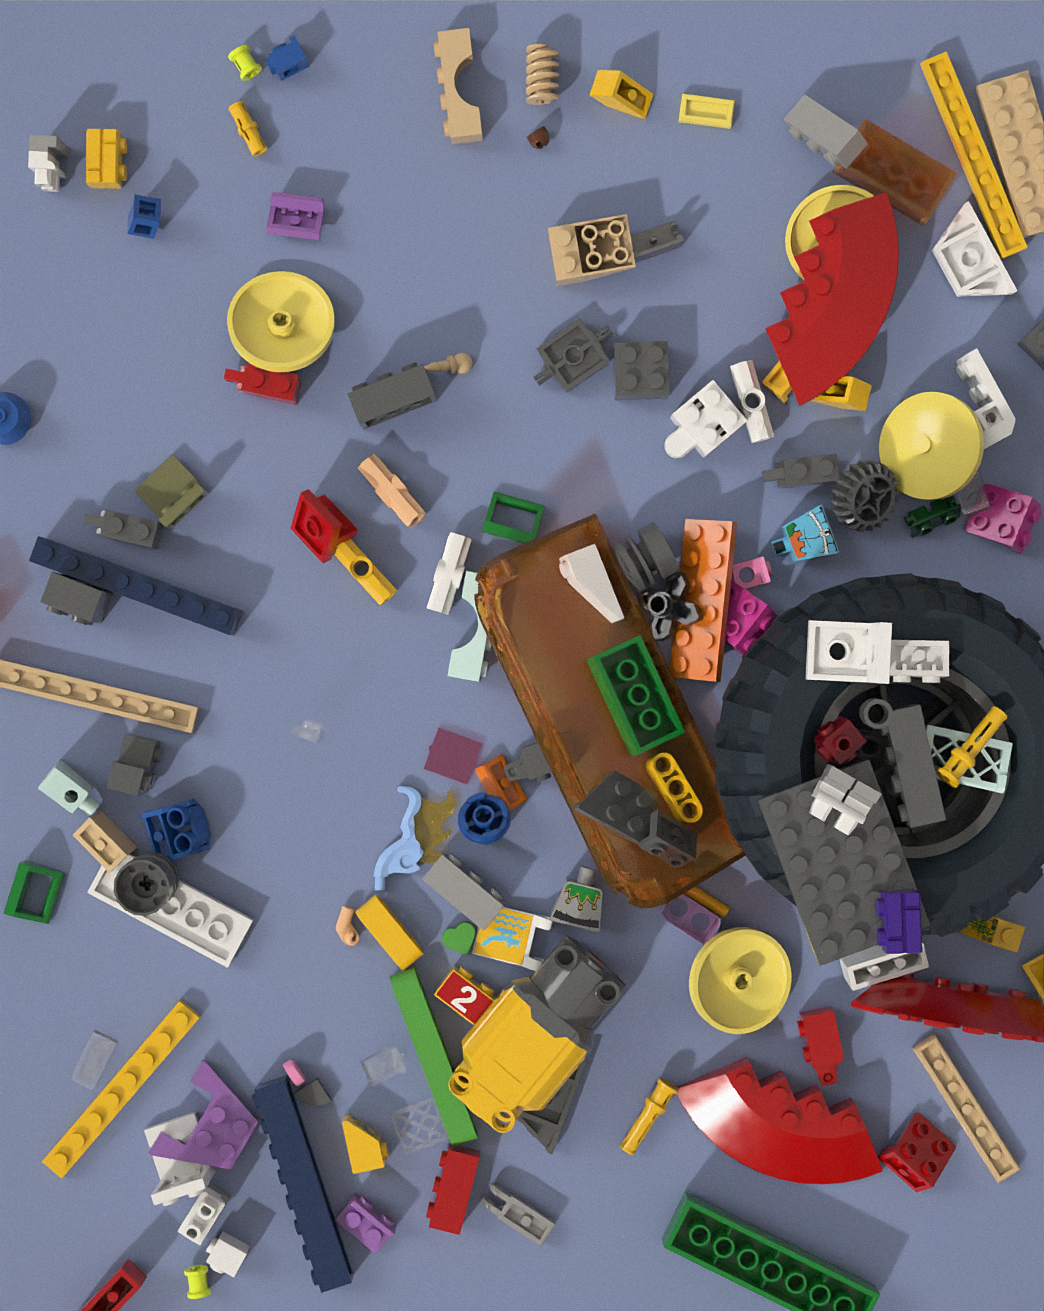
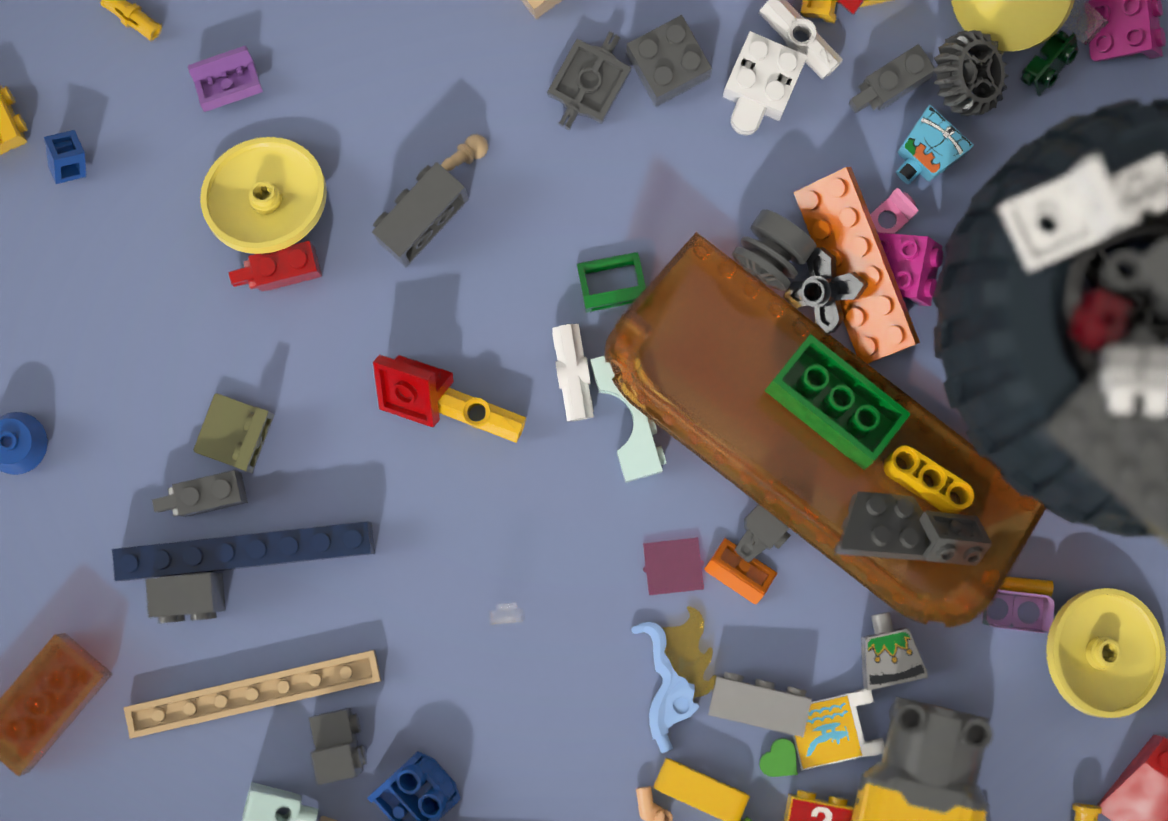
camera: 25 degrees left, 5 degrees down
(392, 491) = (468, 315): light nougat piece -> none
(484, 818) = (742, 615): blue cone -> none
(588, 576) = (725, 303): white slope -> none

